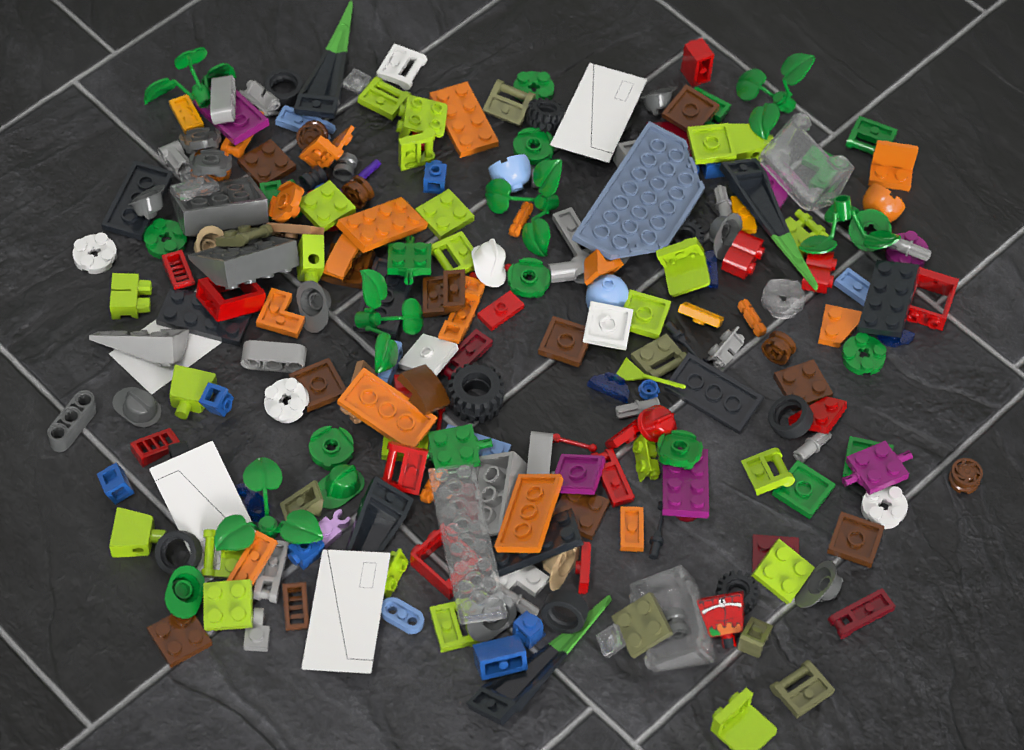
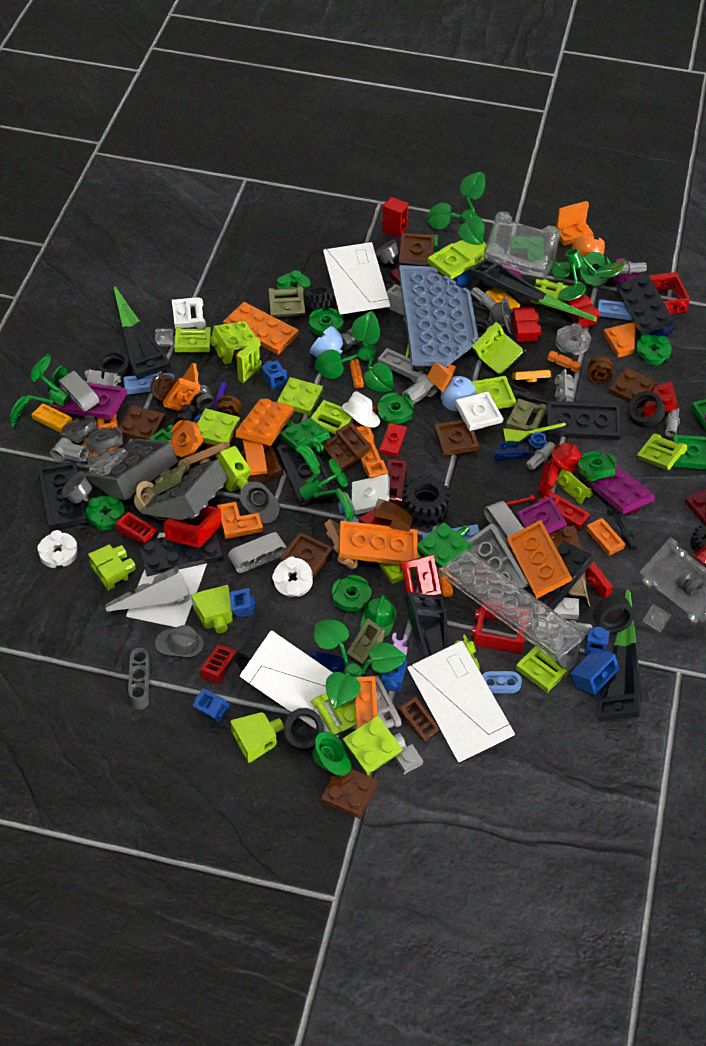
camera: 30 degrees left, 5 degrees down
(642, 624) = (670, 594): olive plate -> none
(871, 132) = (541, 211): green plate -> none

